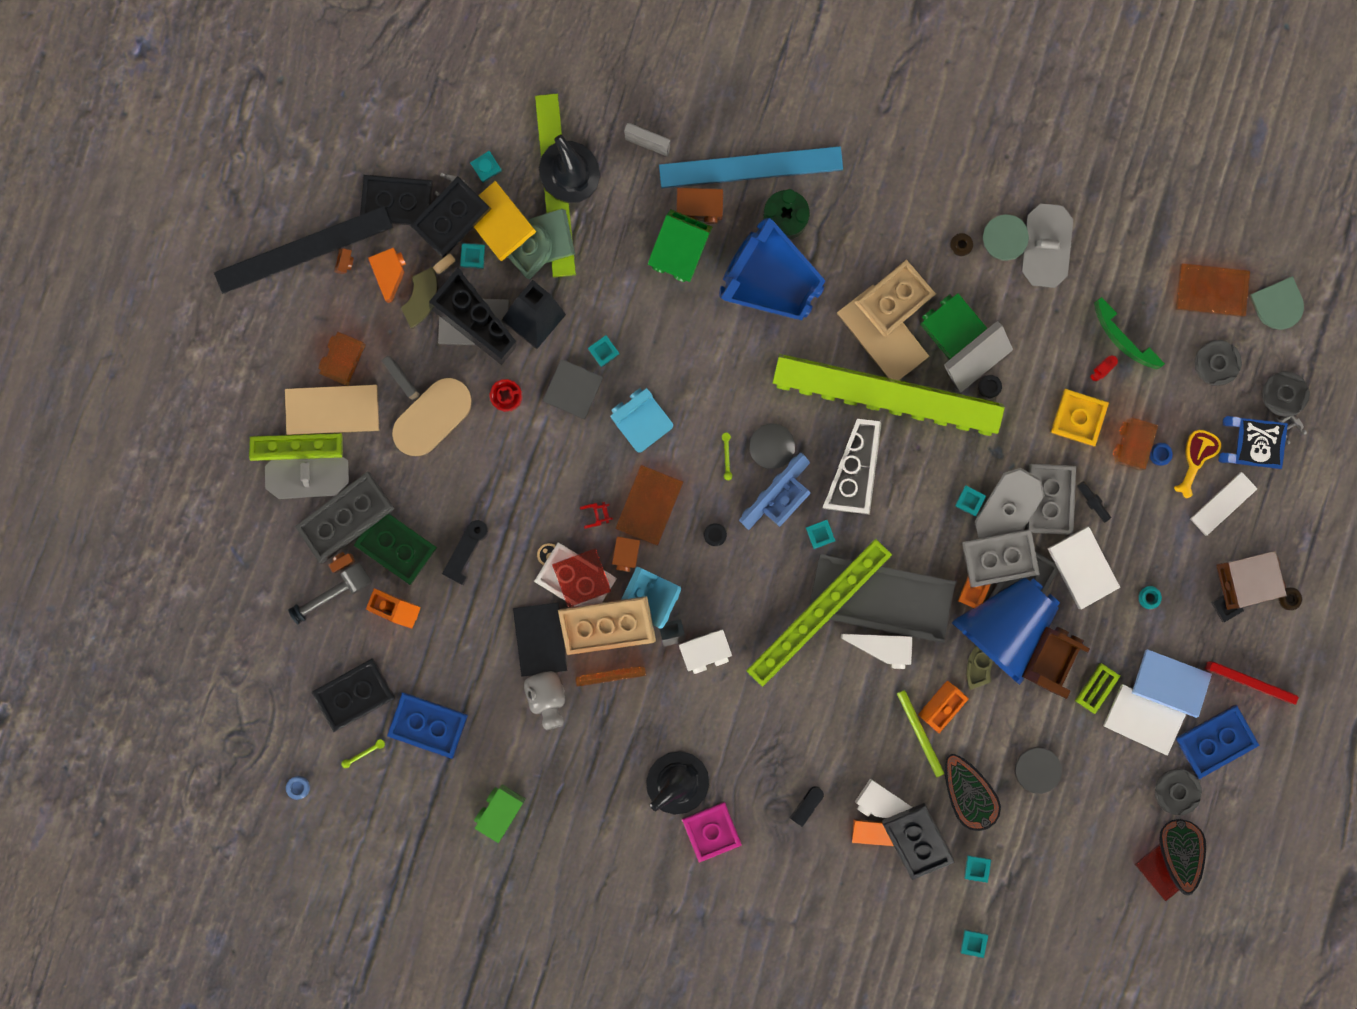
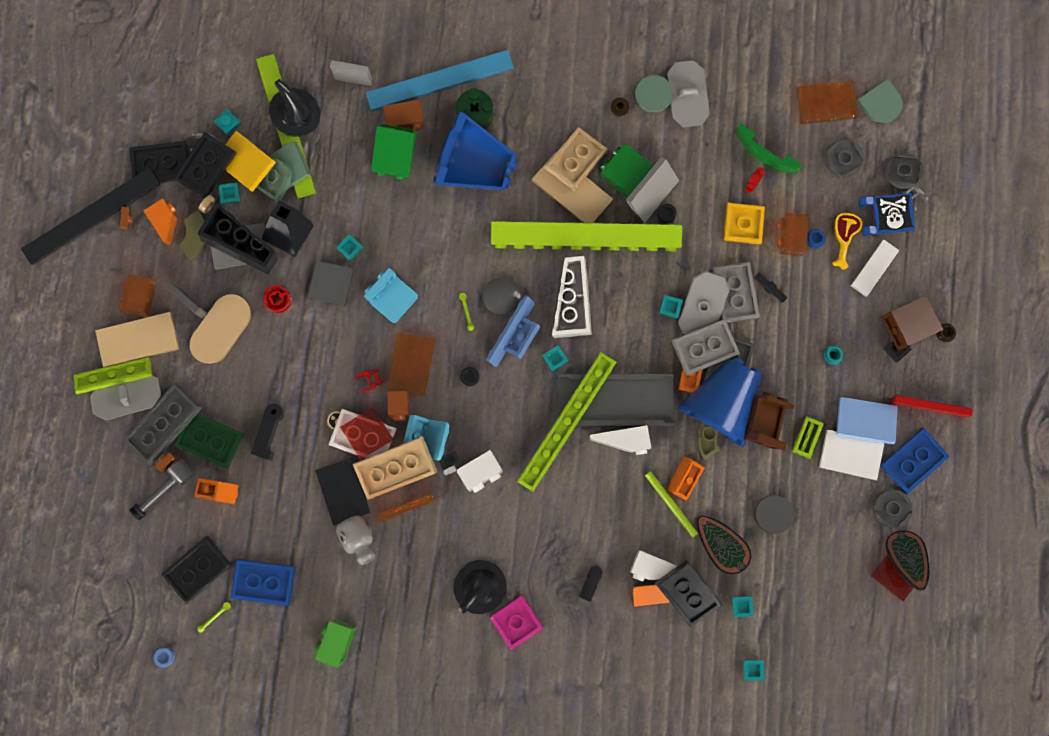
camera: 10 degrees left, 5 degrees down
(1083, 567) = (774, 341): white tile -> none

